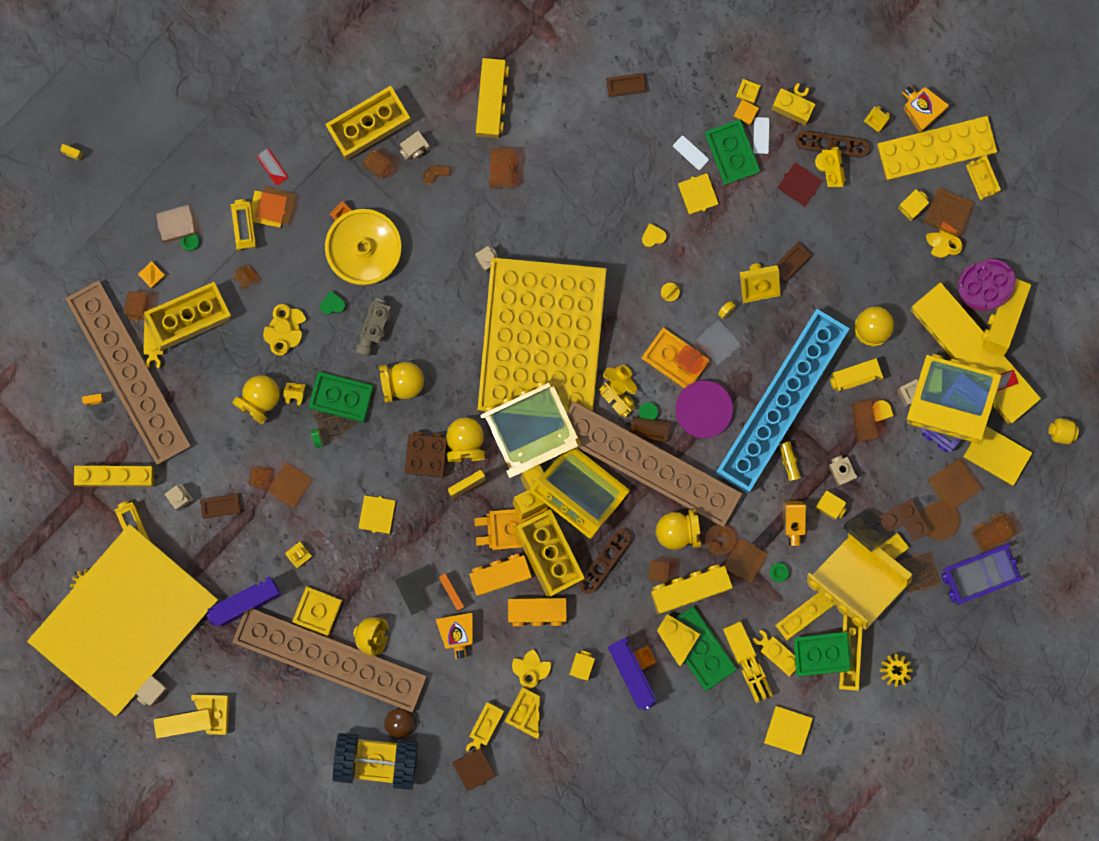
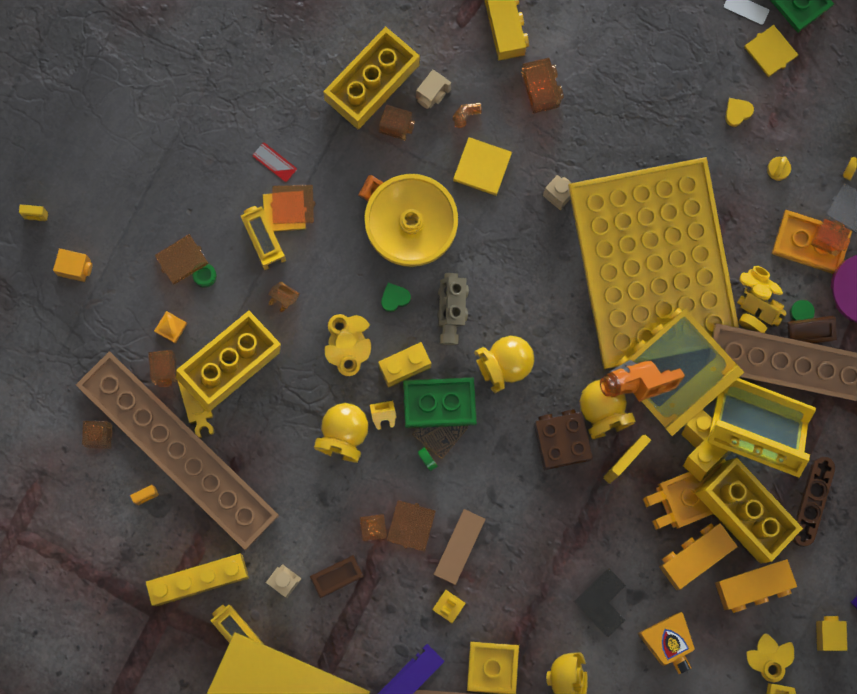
camera: 20 degrees left, 5 degrees down
(70, 342) = (97, 434): none -> clear orange brick
(90, 203) = (72, 265): none -> light orange brick
(321, 512) = (459, 547): none -> medium nougat tile
(322, 359) = (404, 364): none -> yellow brick
(377, 514) = (526, 528): yellow piece -> none
(434, 219) = (482, 166): none -> yellow tile
(451, 592) = (647, 594): orange tile -> none
(496, 426) = (641, 379): none -> orange plate
(603, 410) = (752, 323): none -> yellow tile

